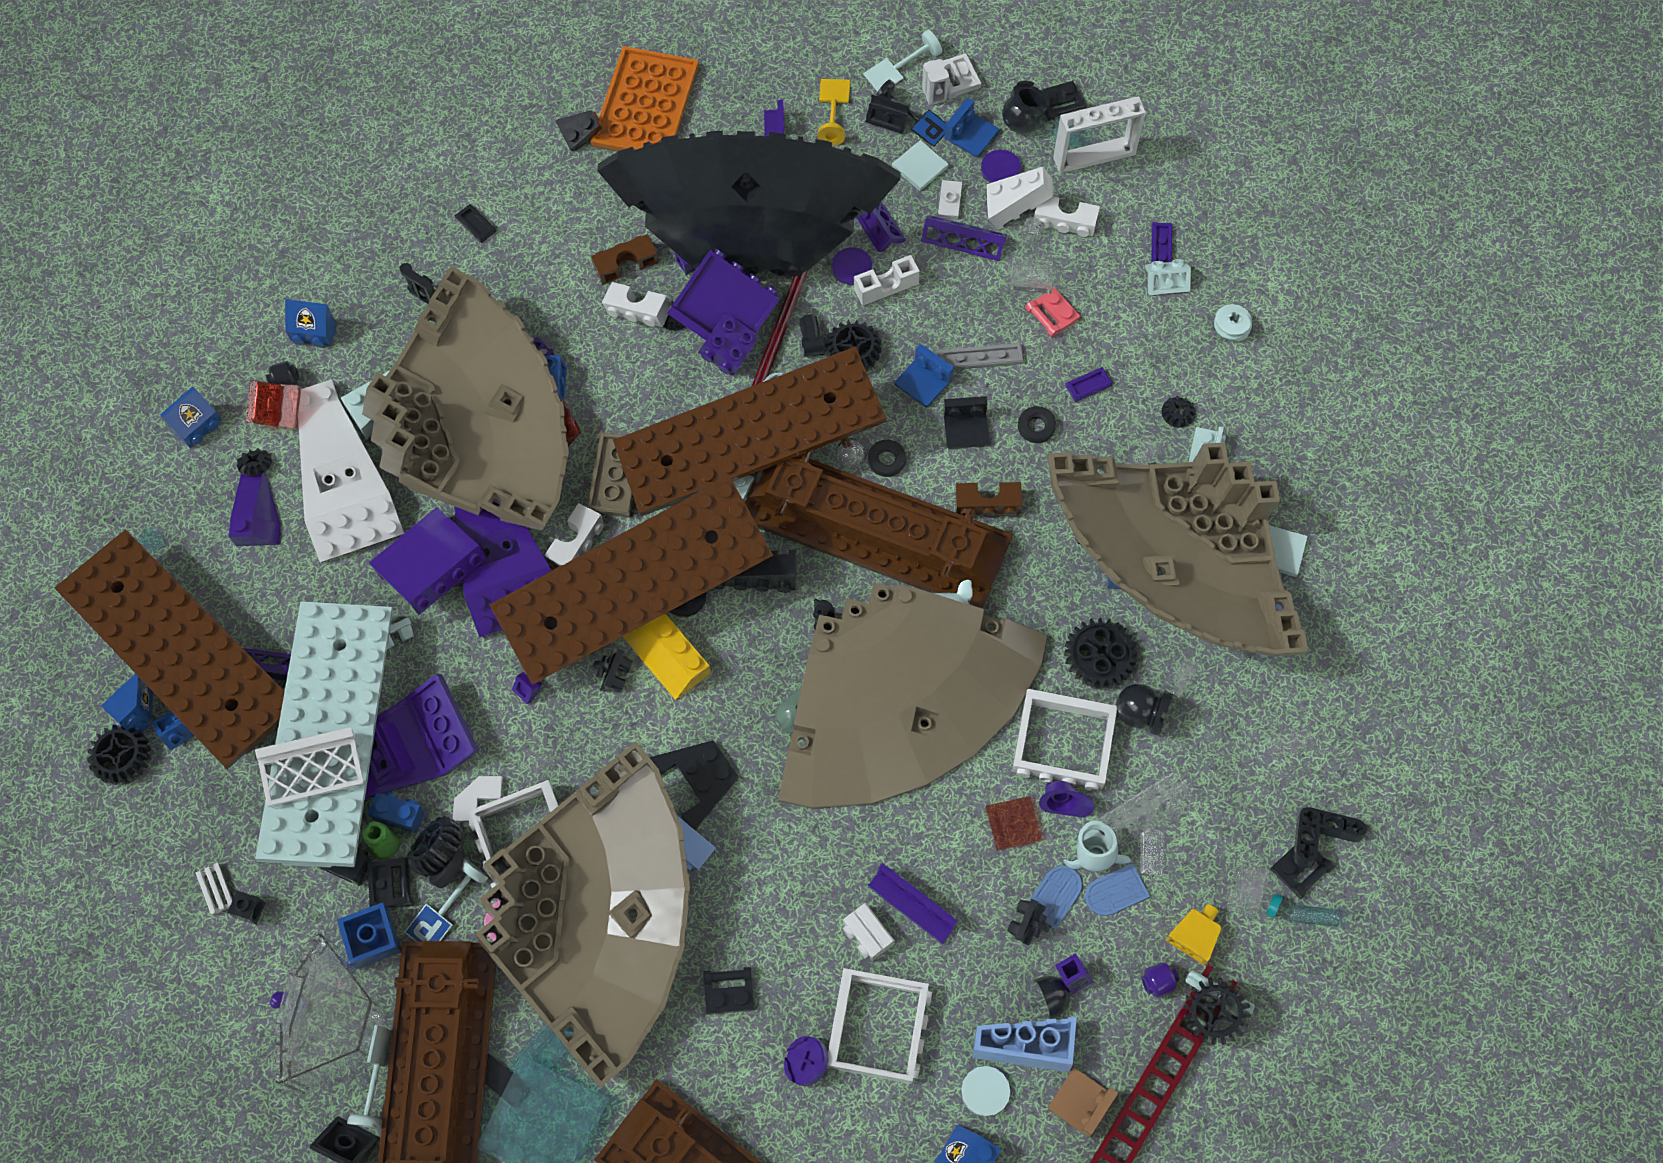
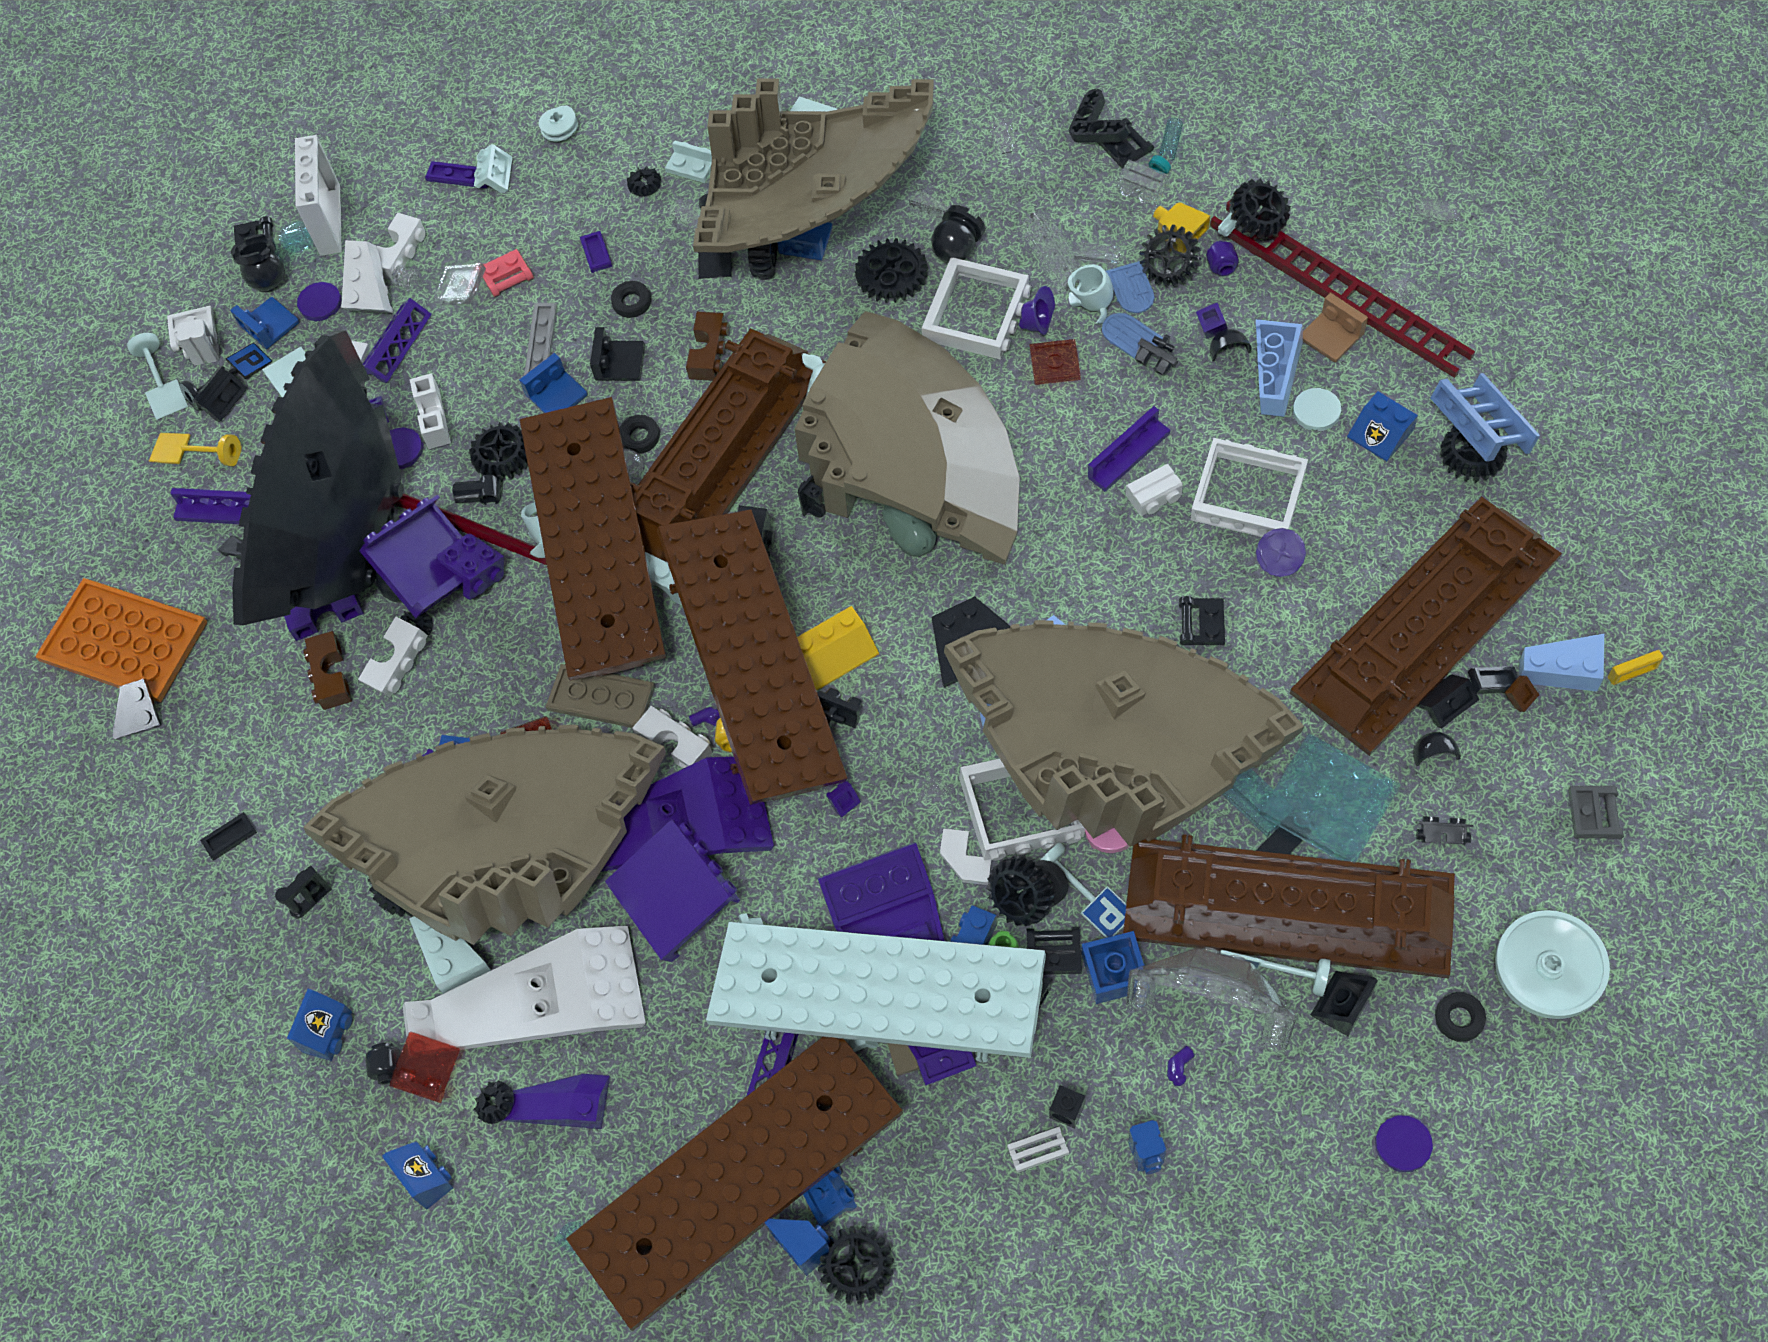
camera: 75 degrees left, 5 degrees down
(205, 976) = (1147, 1147): none -> blue brick
(302, 748) = (902, 996): white fence -> none
(1155, 930) = (1170, 246): none -> black gear

